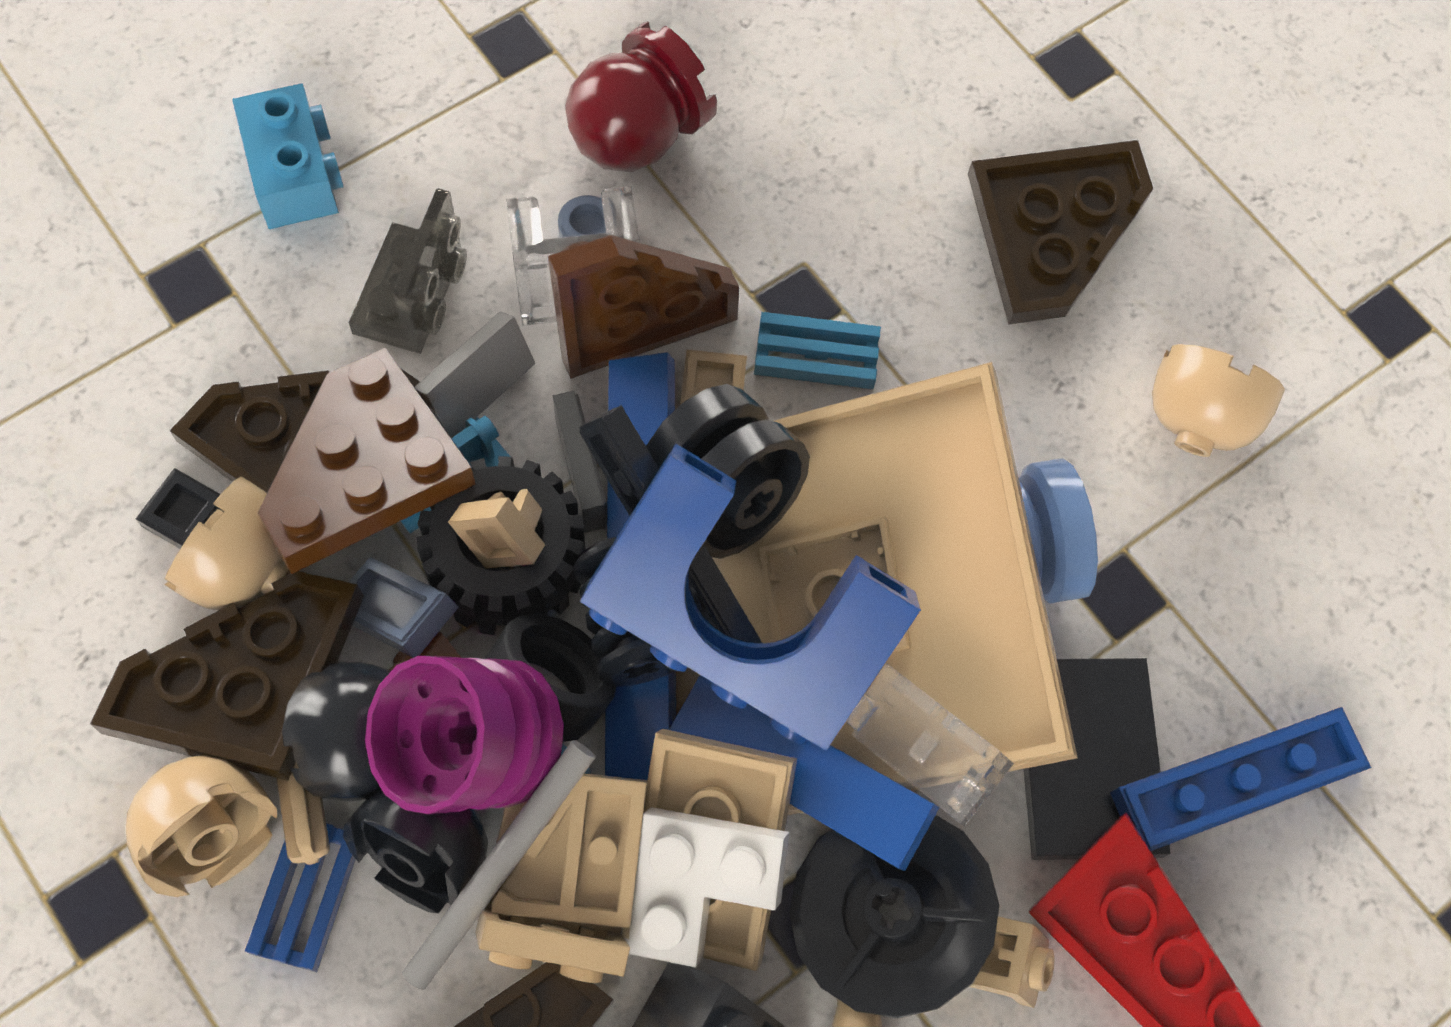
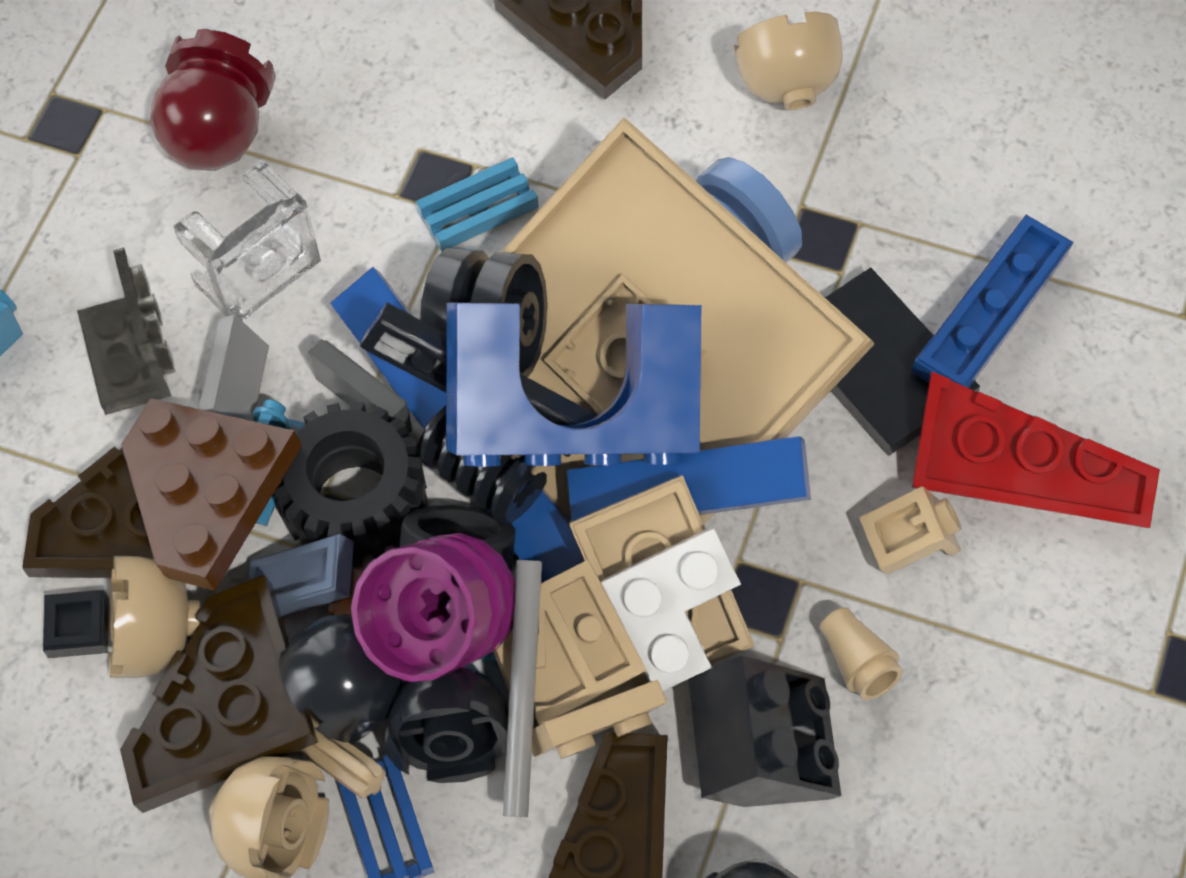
camera: 25 degrees left, 5 degrees down
(500, 530) = (347, 463): tan tile -> none
(581, 217) = (229, 212): sand blue tile -> none
(633, 298) = (317, 245): reddish brown plate -> none
(710, 370) = (408, 272): tan tile -> none
(918, 960) = (864, 553): black piece -> none
(927, 745) = (767, 399): clear hinge -> none

